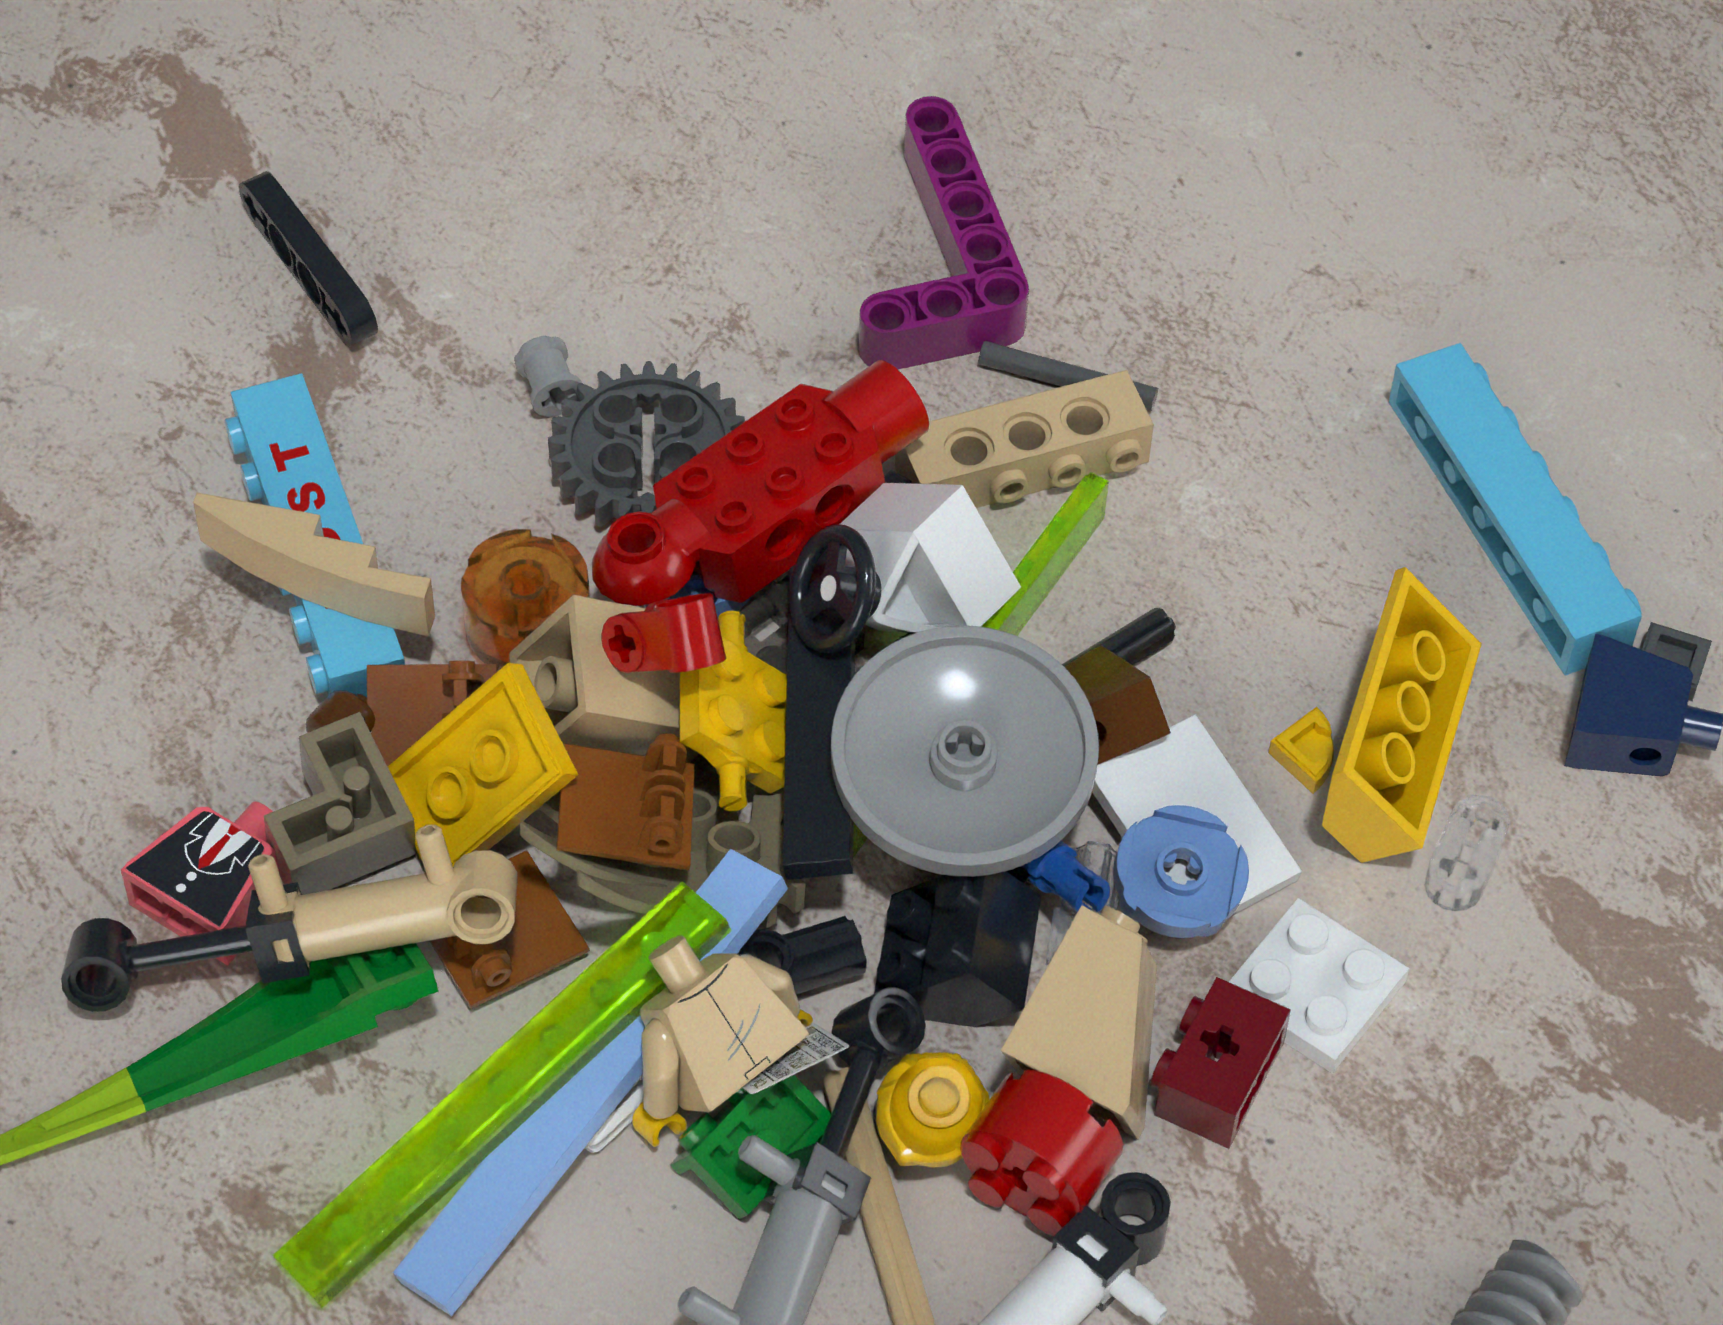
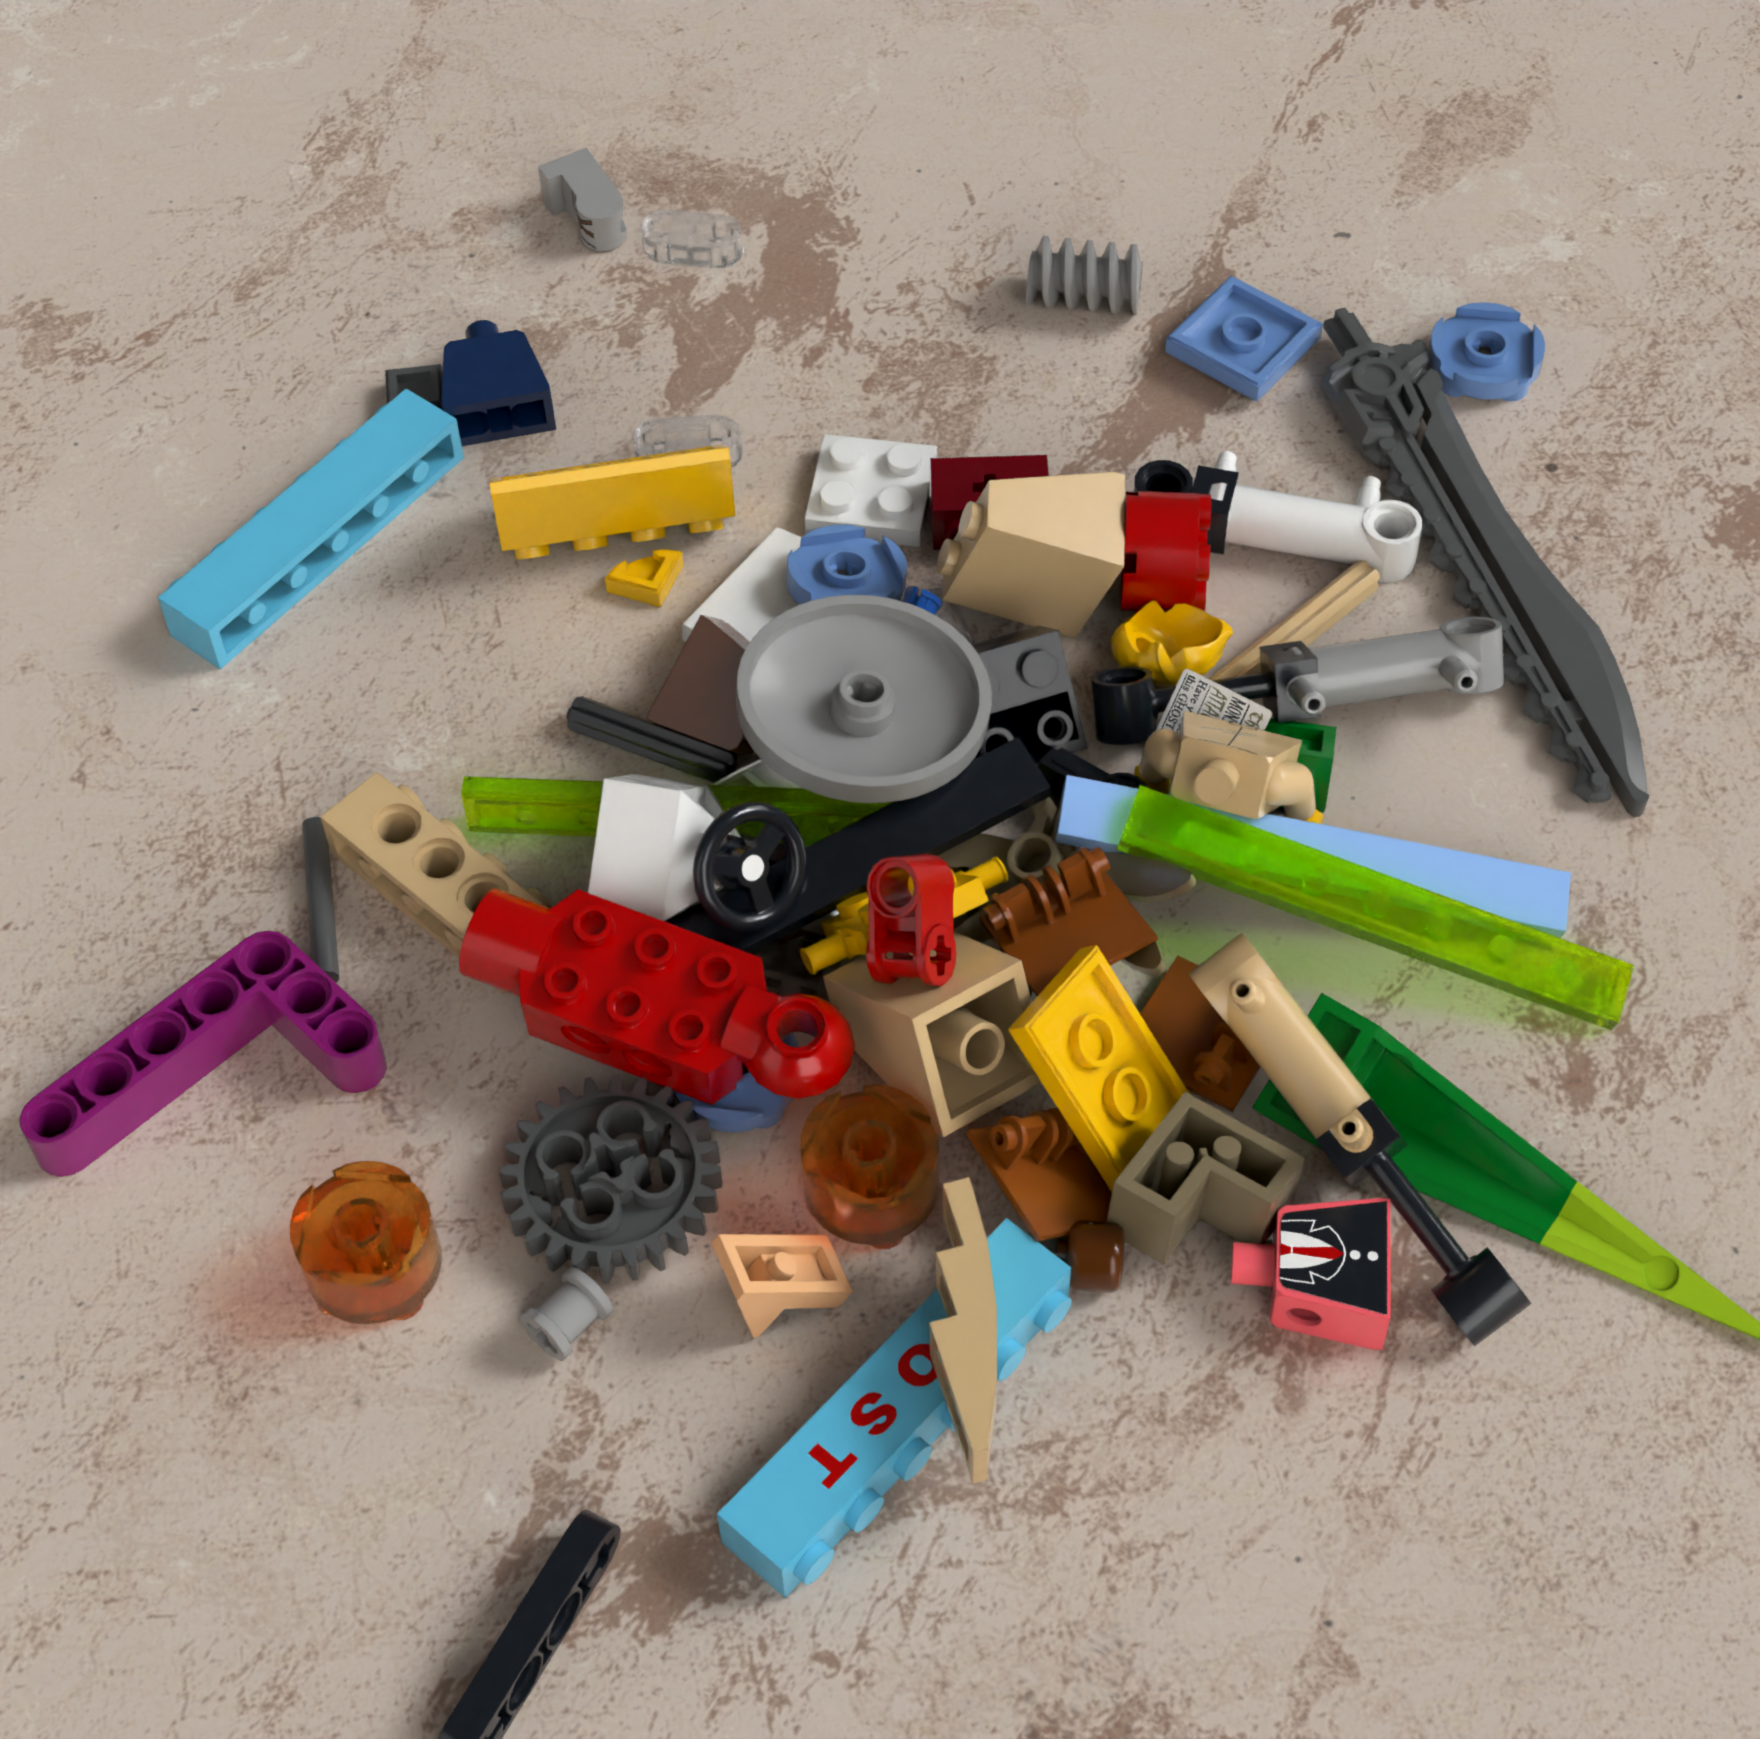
camera: 115 degrees left, 0 degrees up
(474, 496) = (780, 1274): none -> light nougat slope
(688, 268) = (366, 1243): none -> clear orange brick

